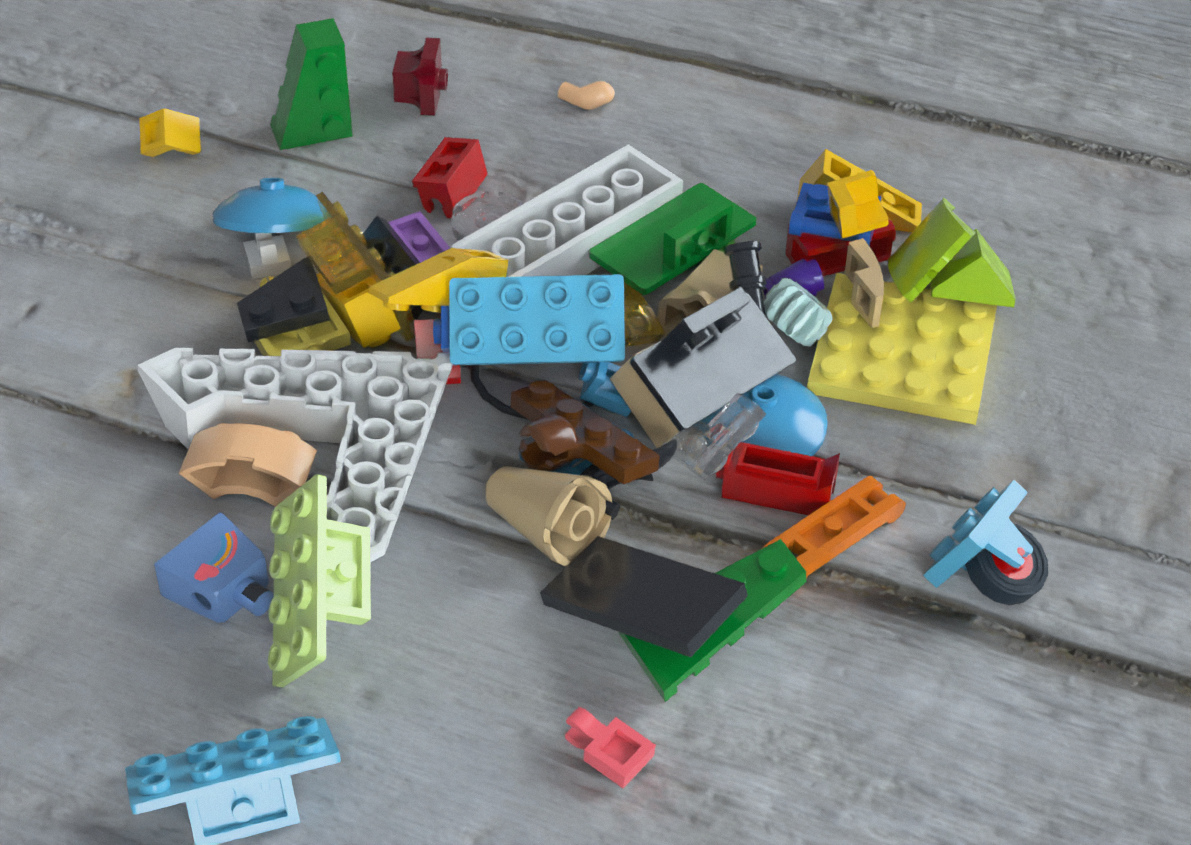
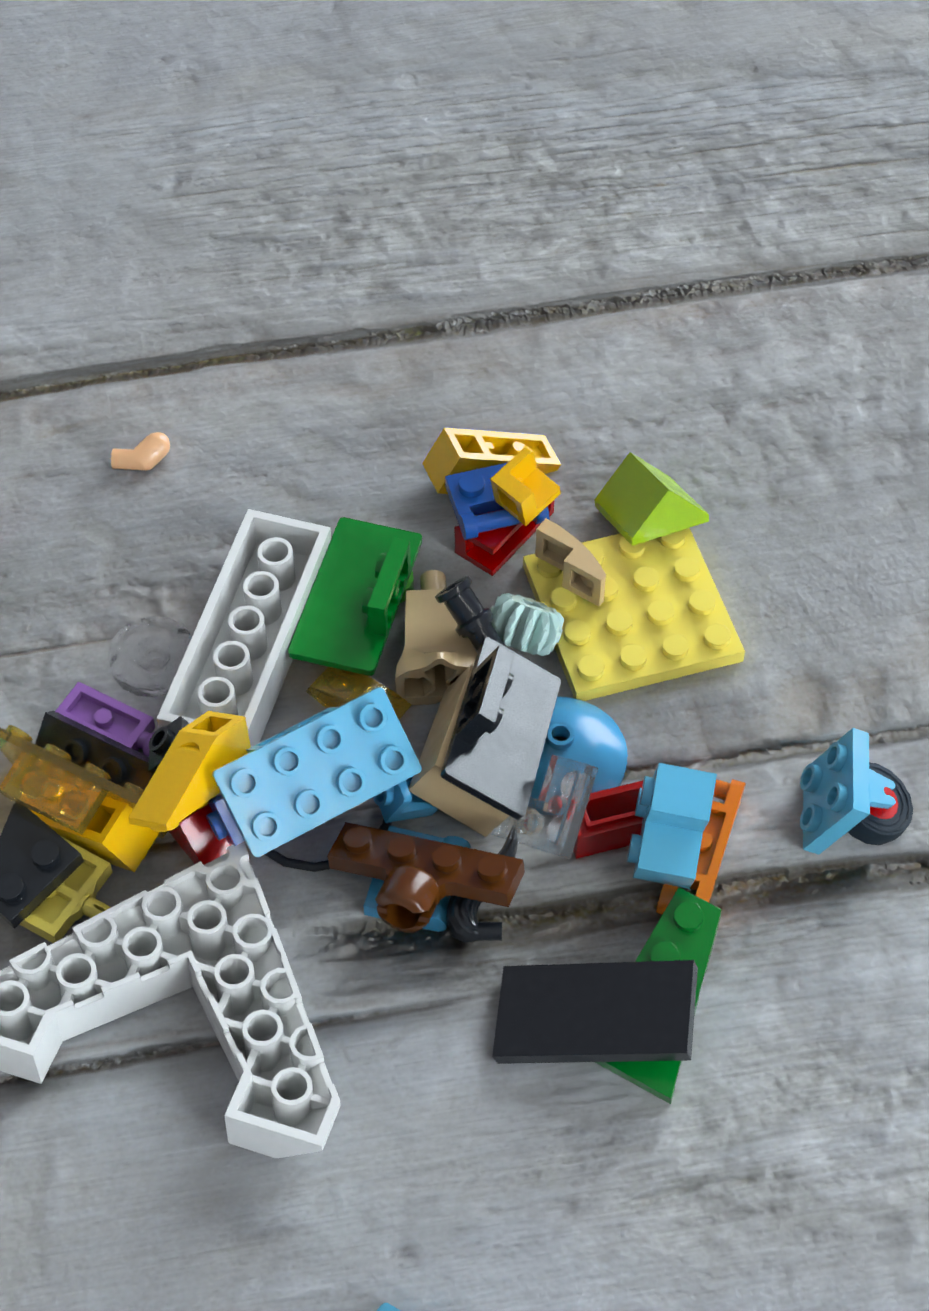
camera: 30 degrees left, 10 degrees up
(216, 572) = (178, 1208): medium blue torso -> none
(248, 461) = (119, 1068): light nougat brick -> none
(317, 576) = (301, 1177): yellowish green bracket -> none
(451, 173) = (77, 621): red hinge -> none
(551, 509) = (444, 965): tan cone -> none
(610, 749) = (671, 1182): coral plate -> none
(803, 272) = (496, 578): dark purple cone -> none
(806, 483) = (674, 815): none -> medium azure brick
(928, 249) = (605, 499): lime slope -> none

